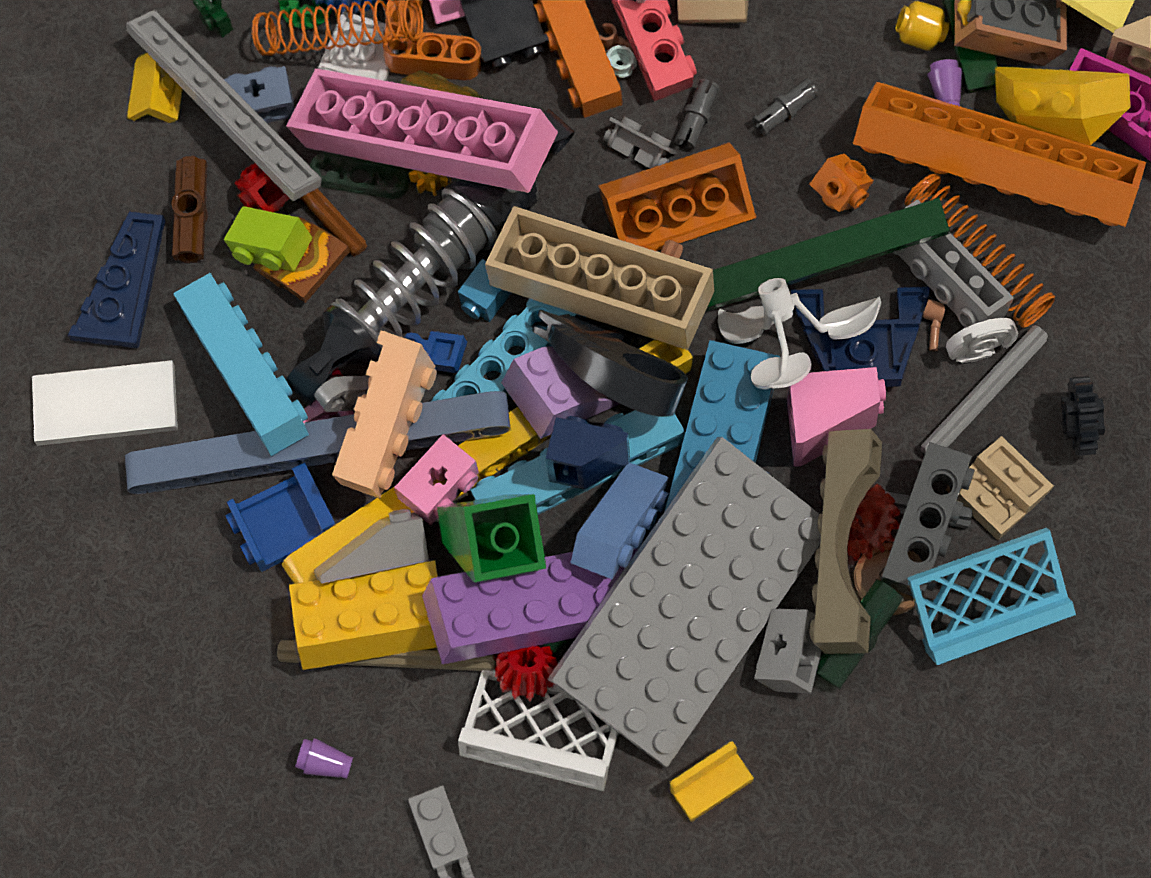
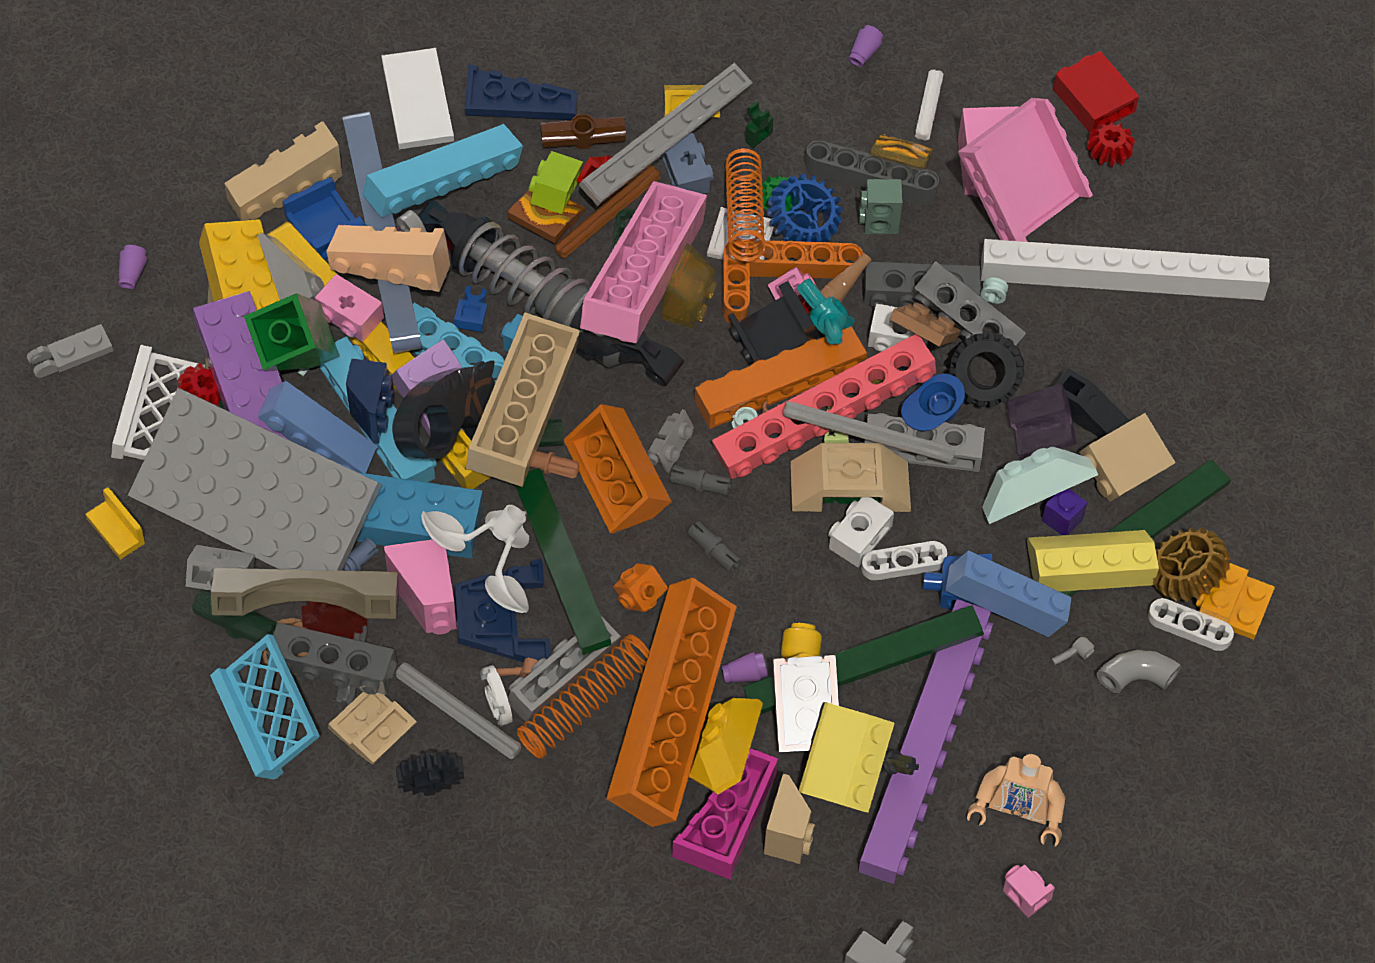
camera: 75 degrees right, 10 degrees down
(212, 559) = (285, 173): none -> tan wedge

